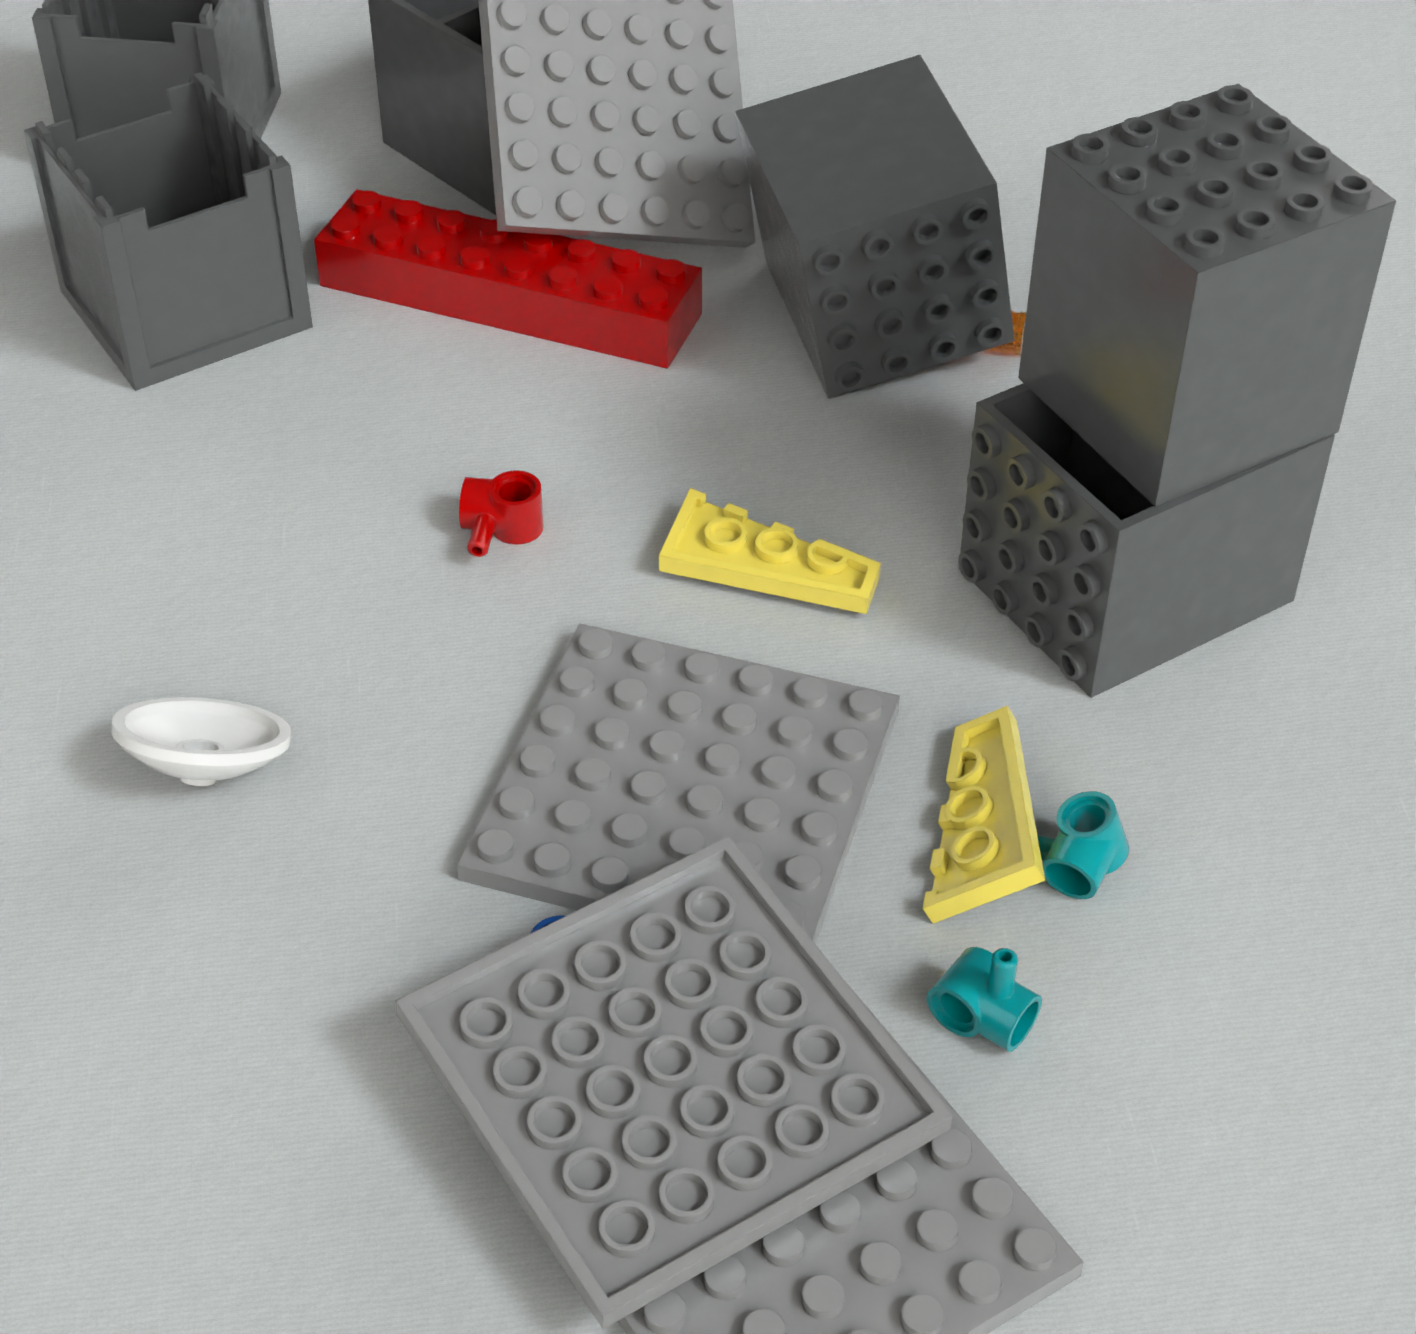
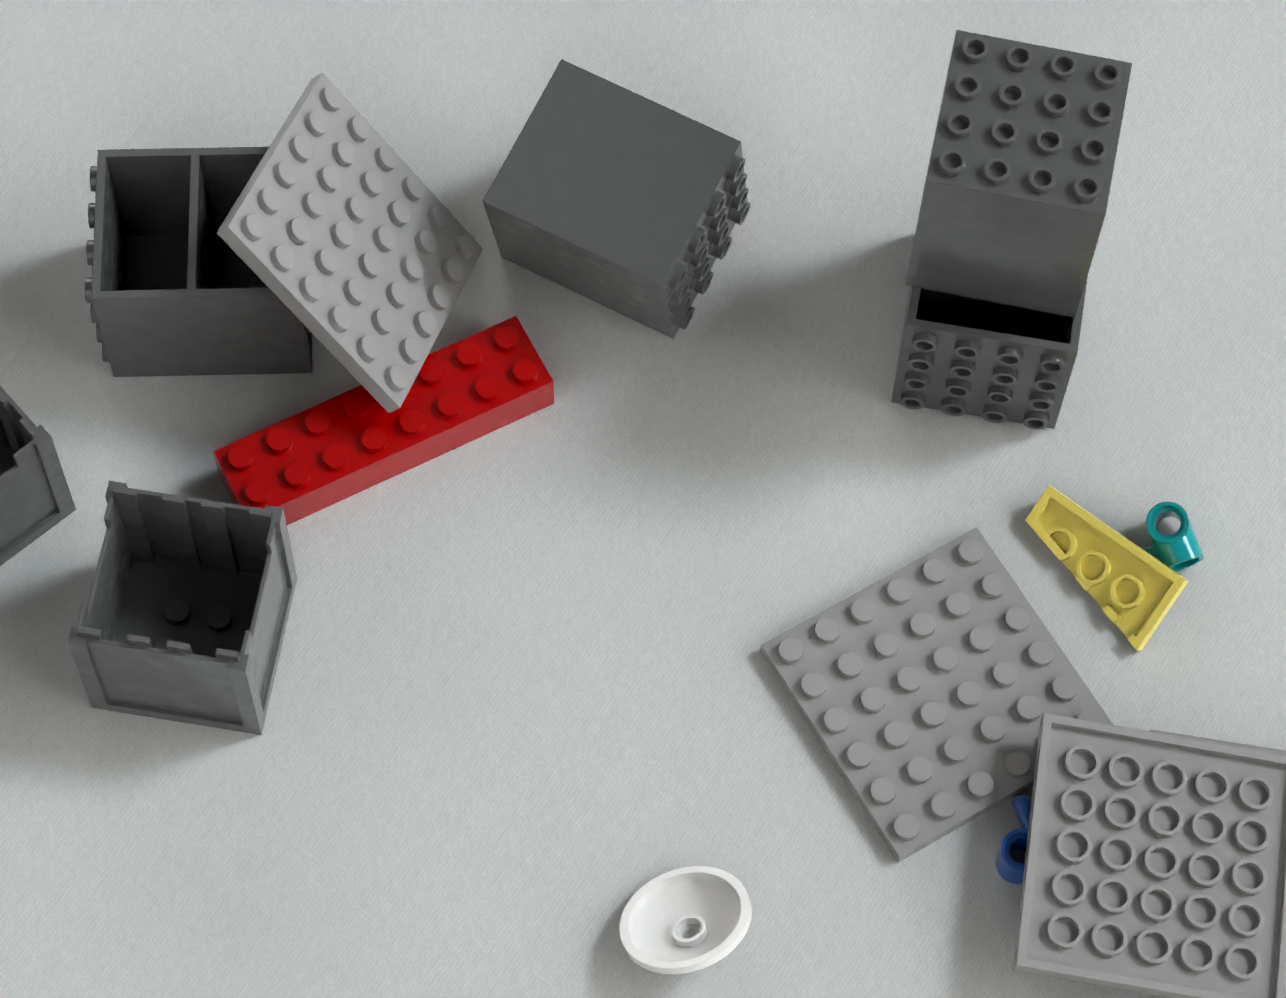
camera: 50 degrees left, 20 degrees up
(501, 507) = (609, 618): red piece -> none
(745, 554) = (784, 506): light yellow wing -> none
(984, 999) = (1226, 675): teal piece -> none

